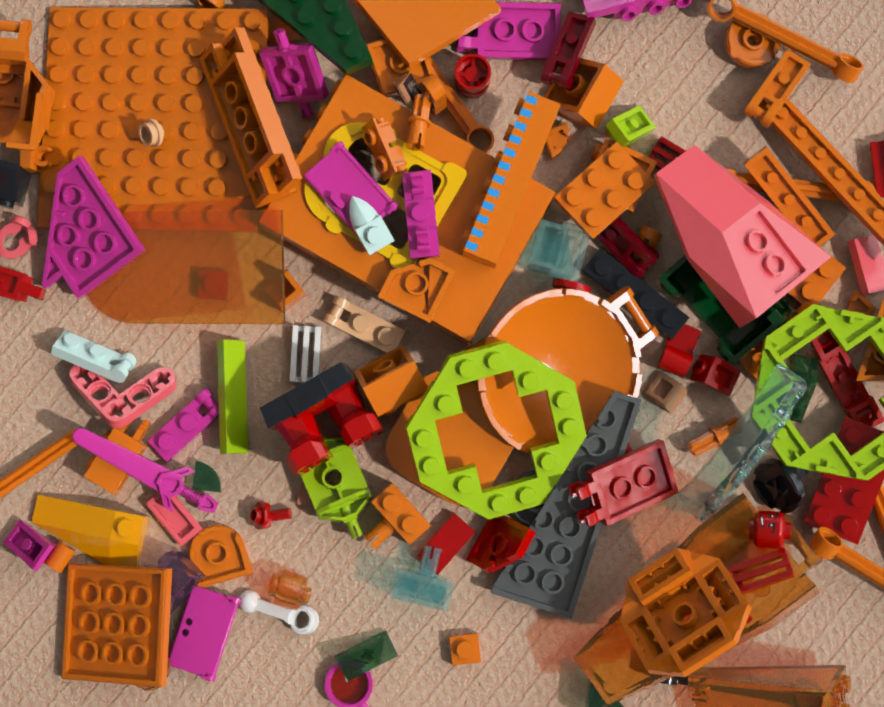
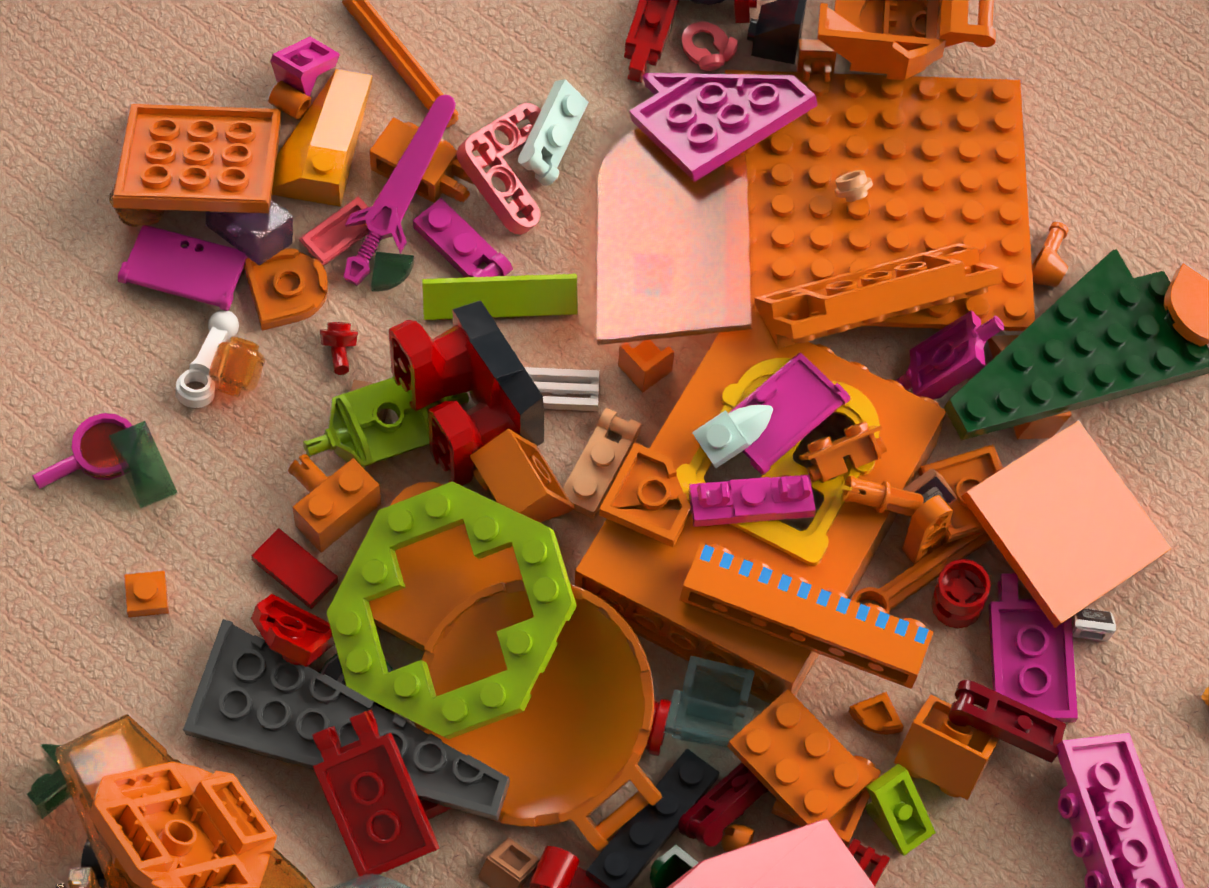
camera: 85 degrees right, 20 degrees down
(424, 585) = (235, 532): clear light blue brick -> none

